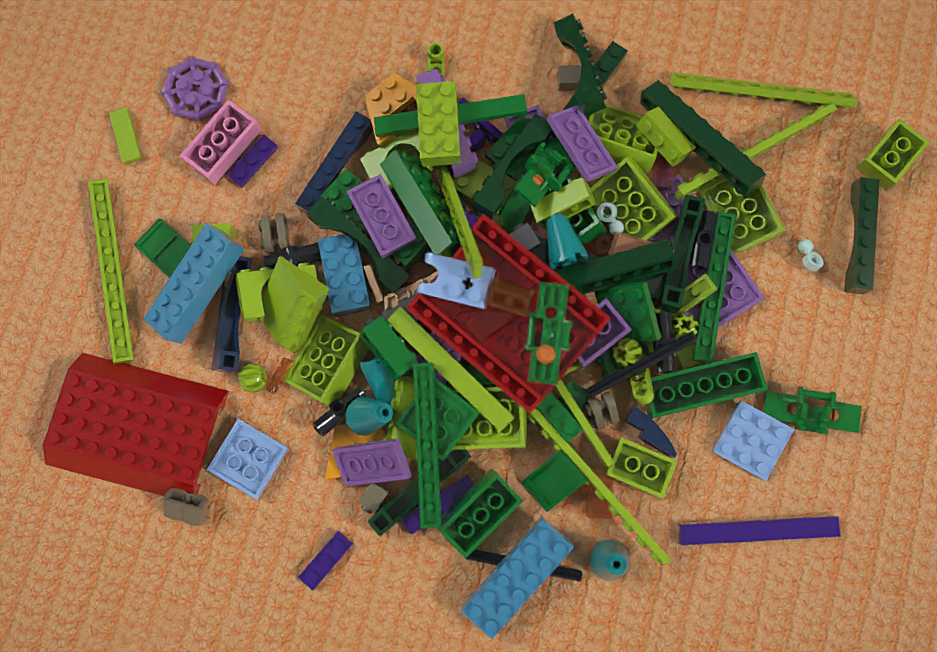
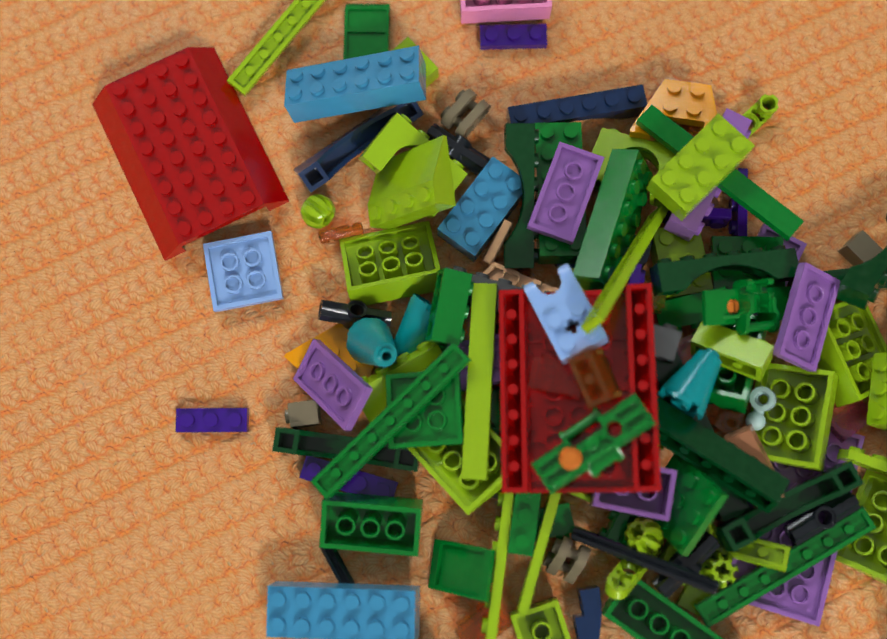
camera: 50 degrees right, 0 degrees up
(185, 506) = (154, 253): dark tan brick -> none

